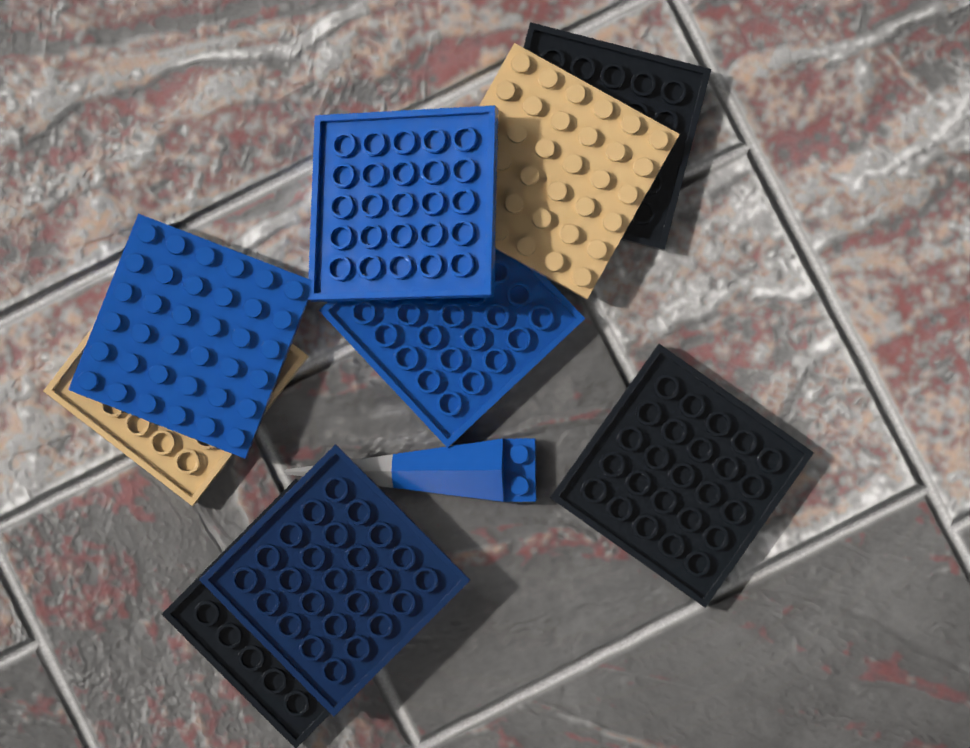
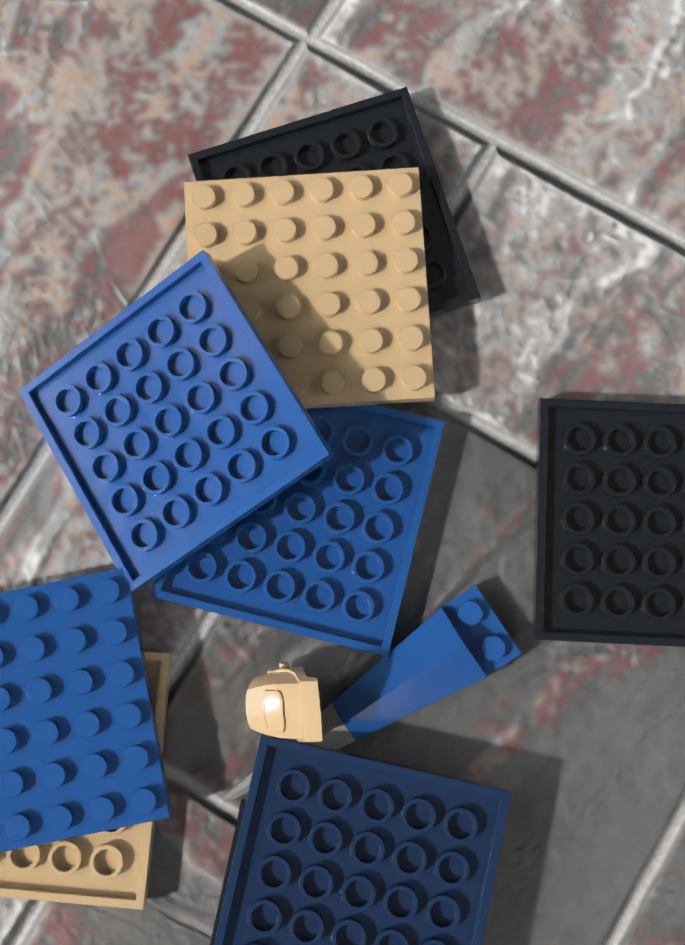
camera: 30 degrees left, 5 degrees down
(362, 435) = (285, 704): none -> tan helmet

